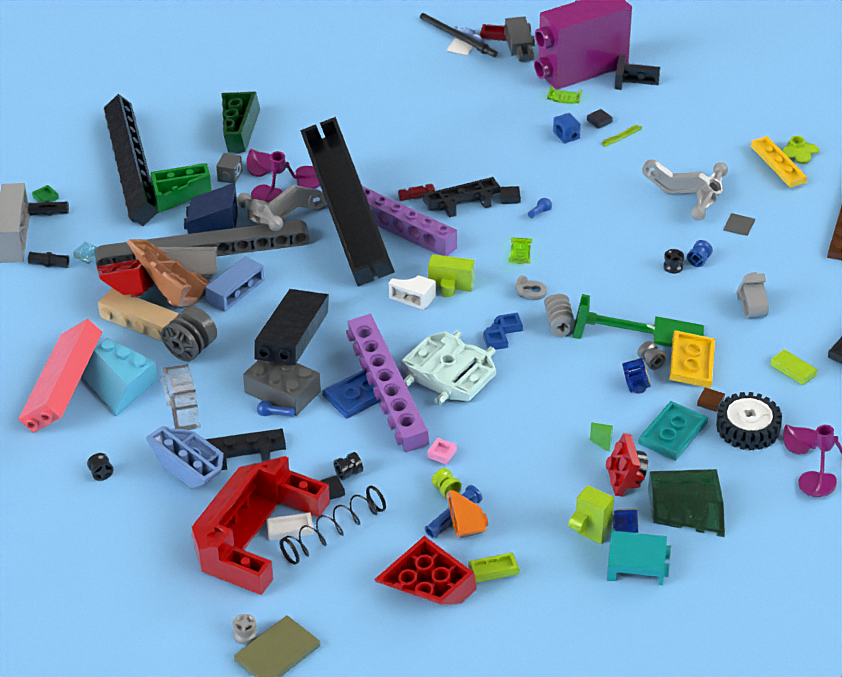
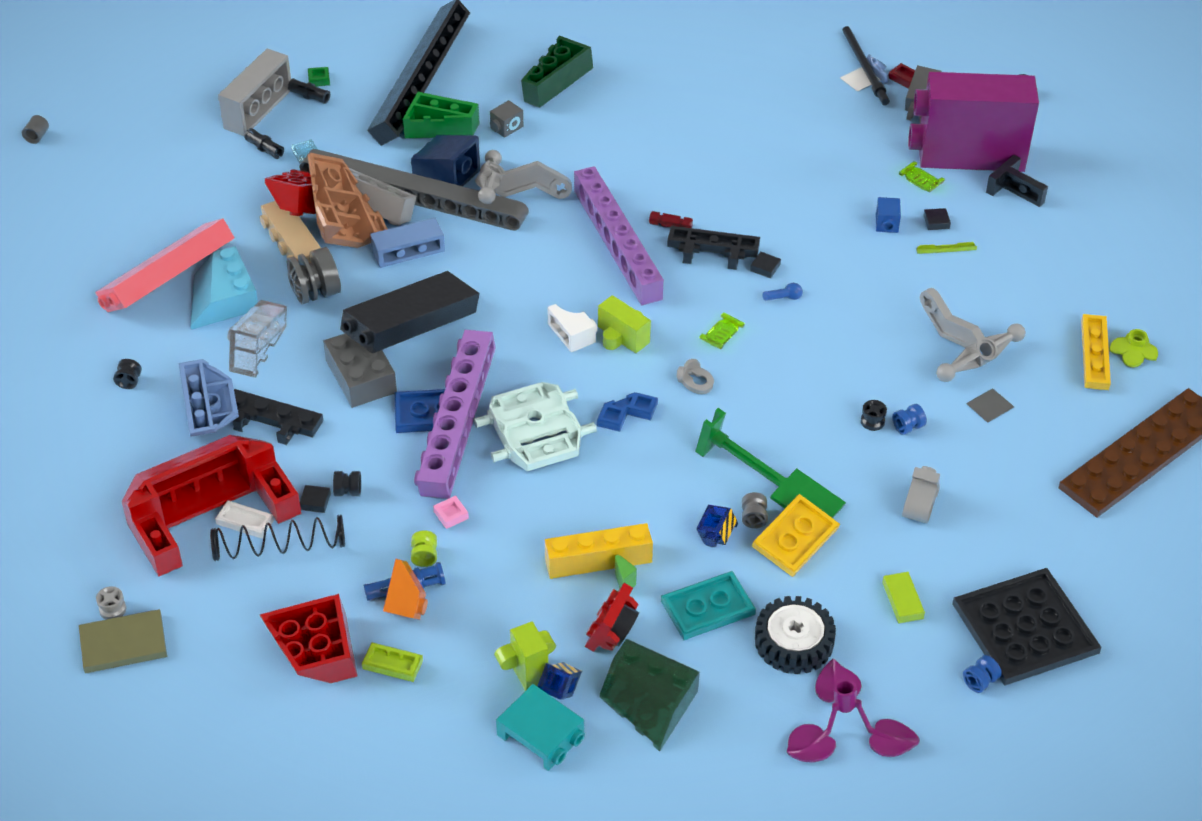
camera: 30 degrees right, 5 degrees up
(261, 163) = (545, 128): magenta plant -> none
(266, 408) = (330, 387): blue bar -> none
(347, 202) = (571, 202): black piece -> none
(559, 314) = (691, 420): light grey piece -> none
(570, 428) = (597, 550): none -> yellow brick
(710, 399) = (778, 588): reddish brown tile -> none

